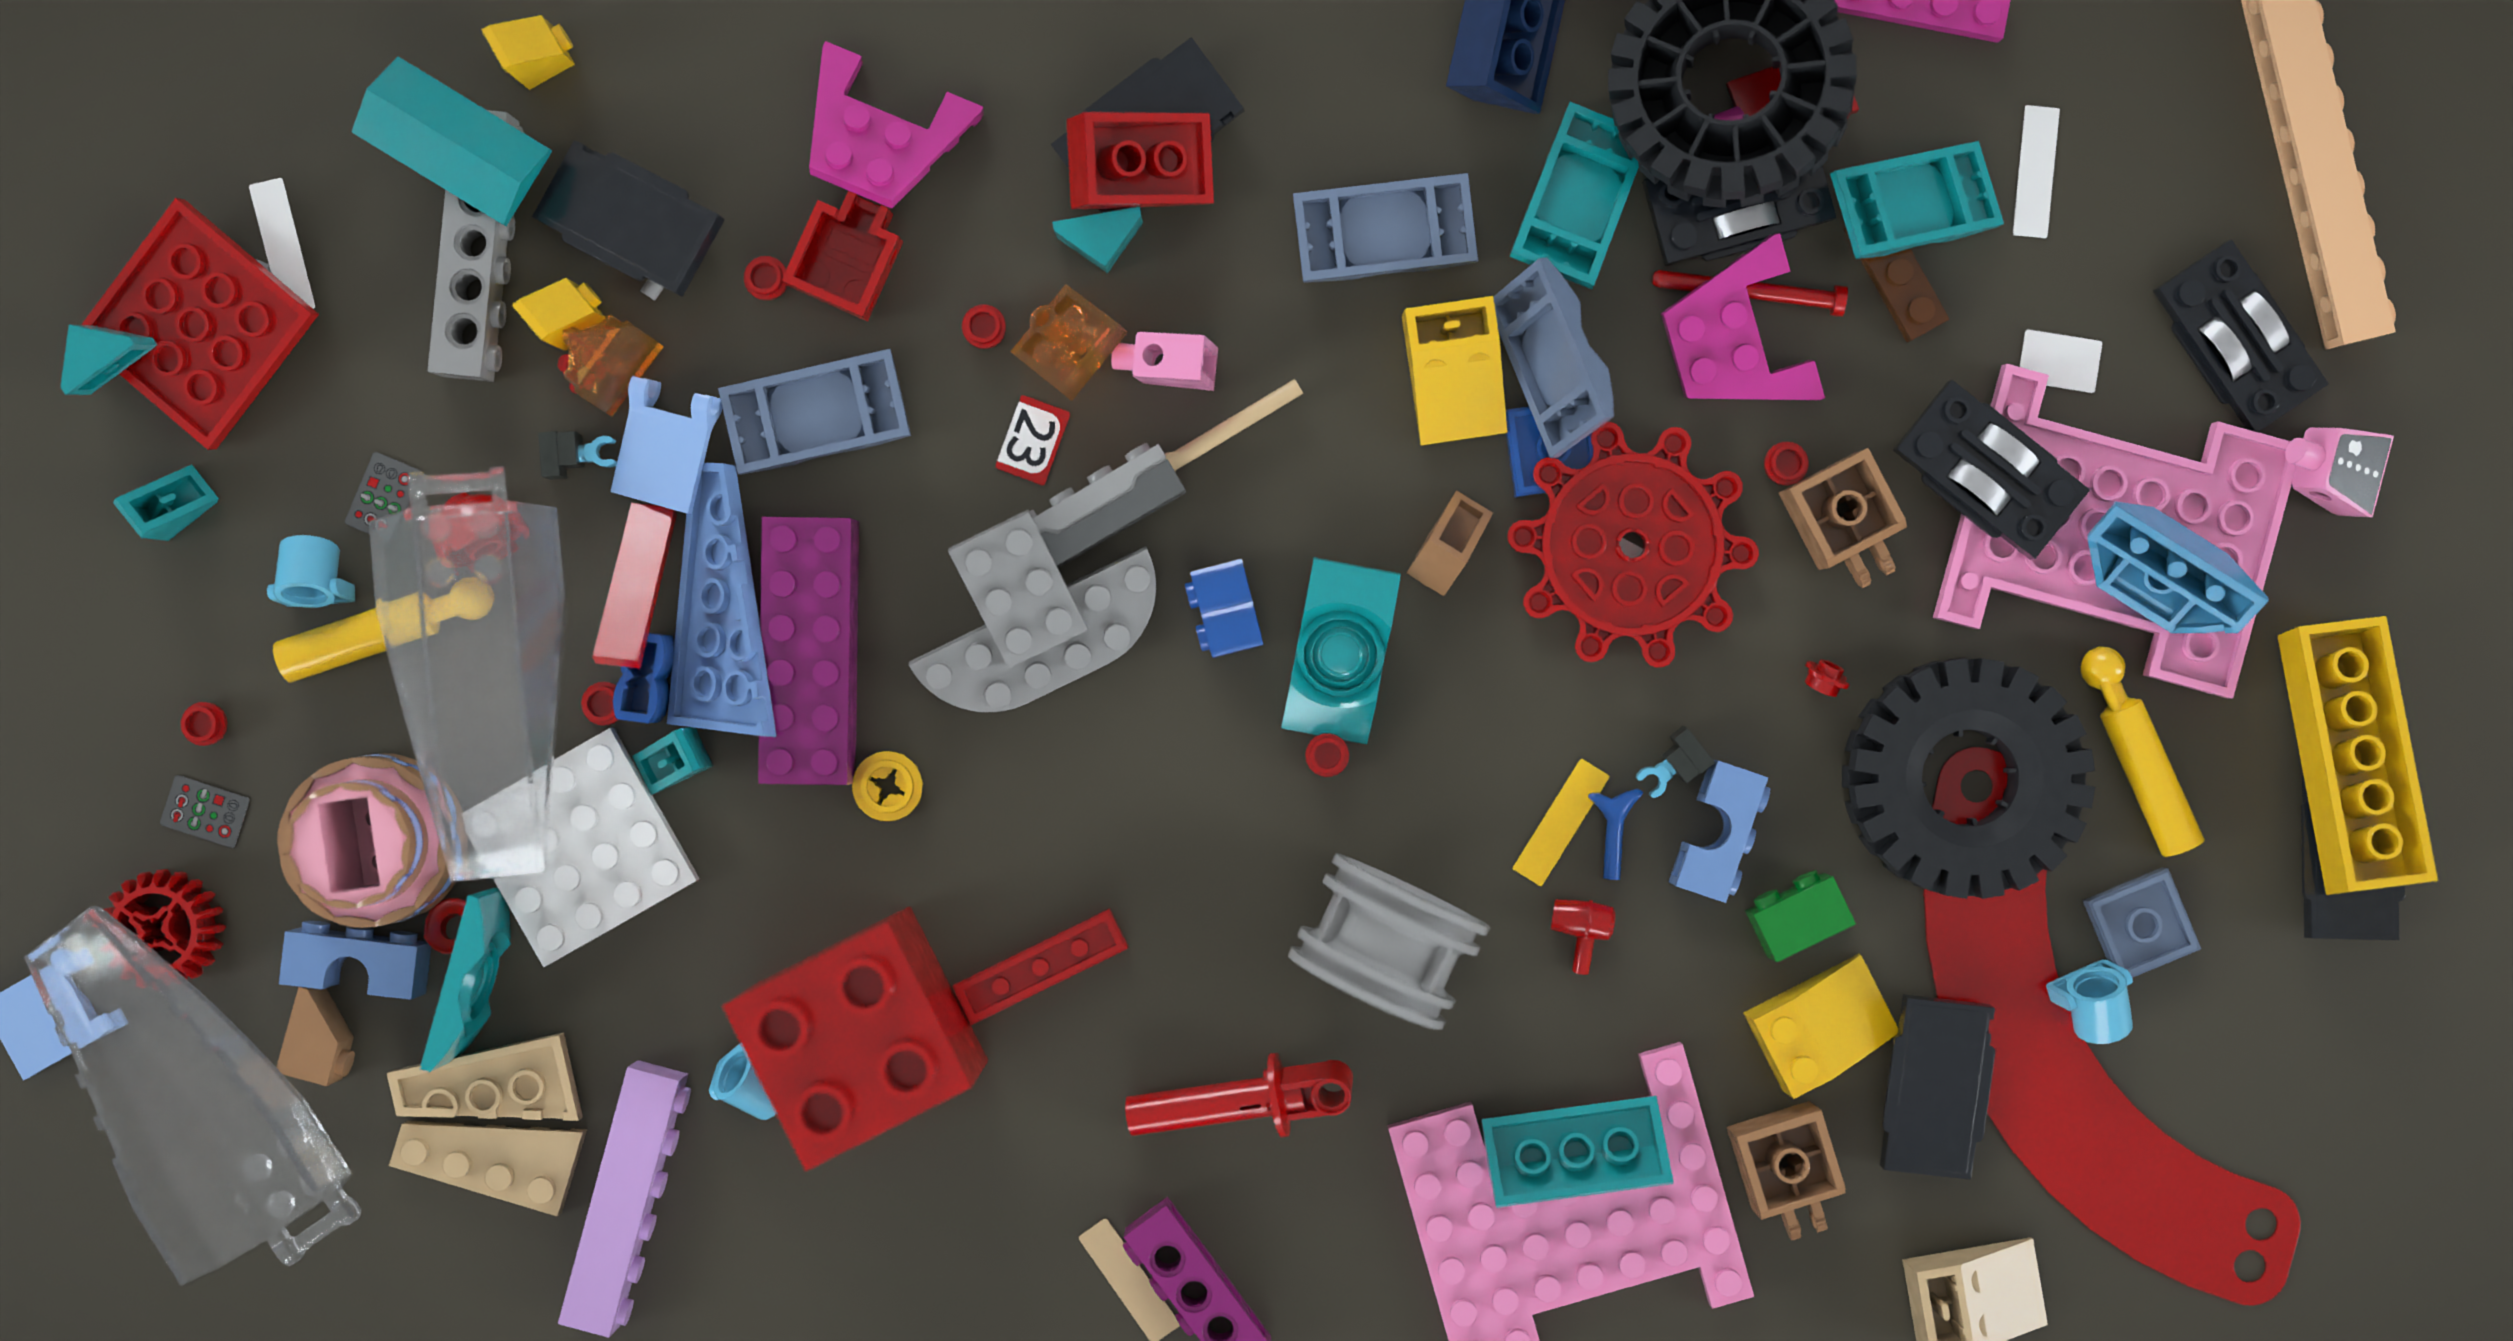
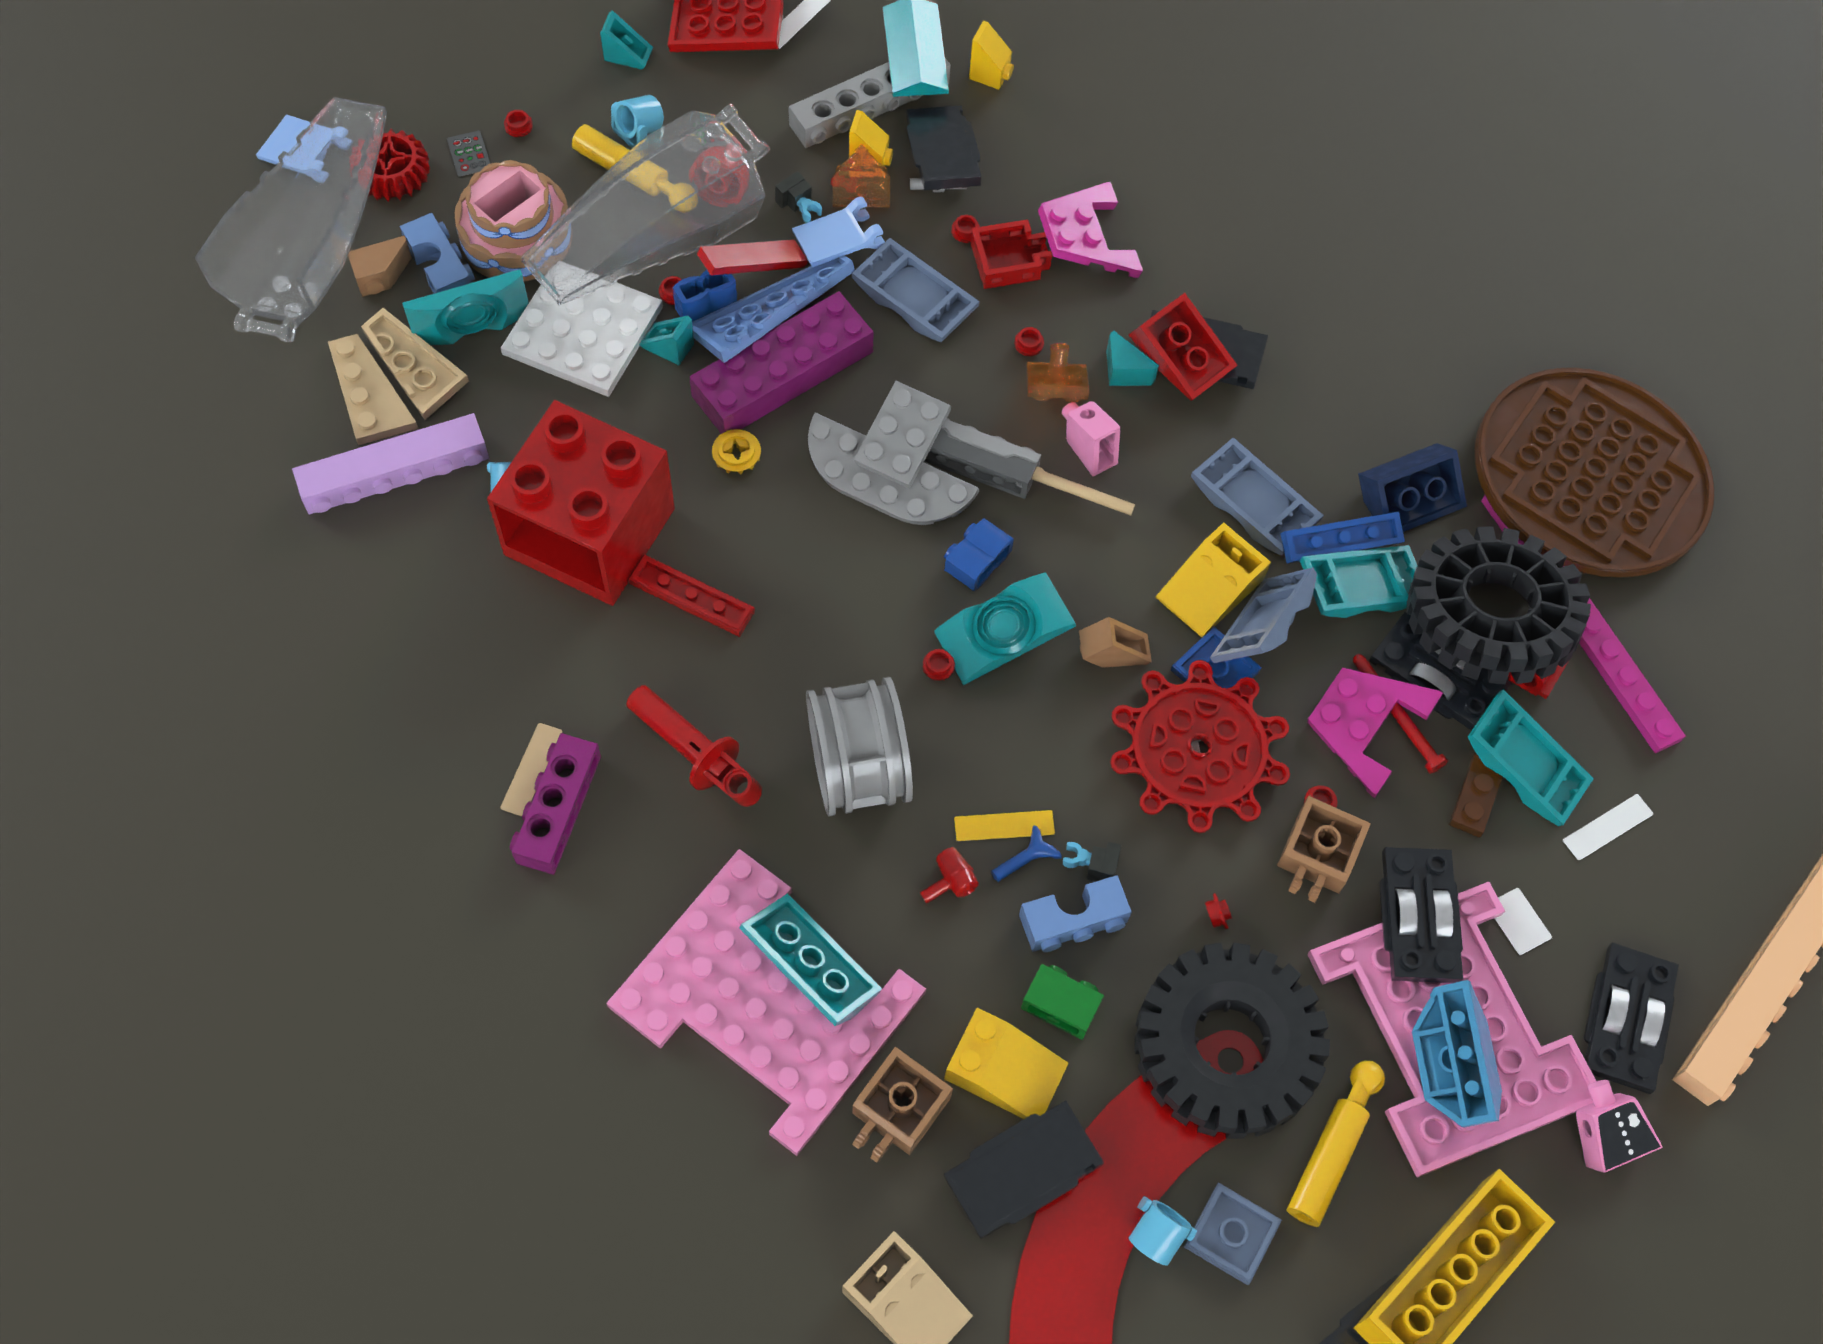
camera: 50 degrees right, 25 degrees down
(1032, 440) = (988, 406): sticker -> none
(1514, 178) = (1343, 536): none -> blue plate

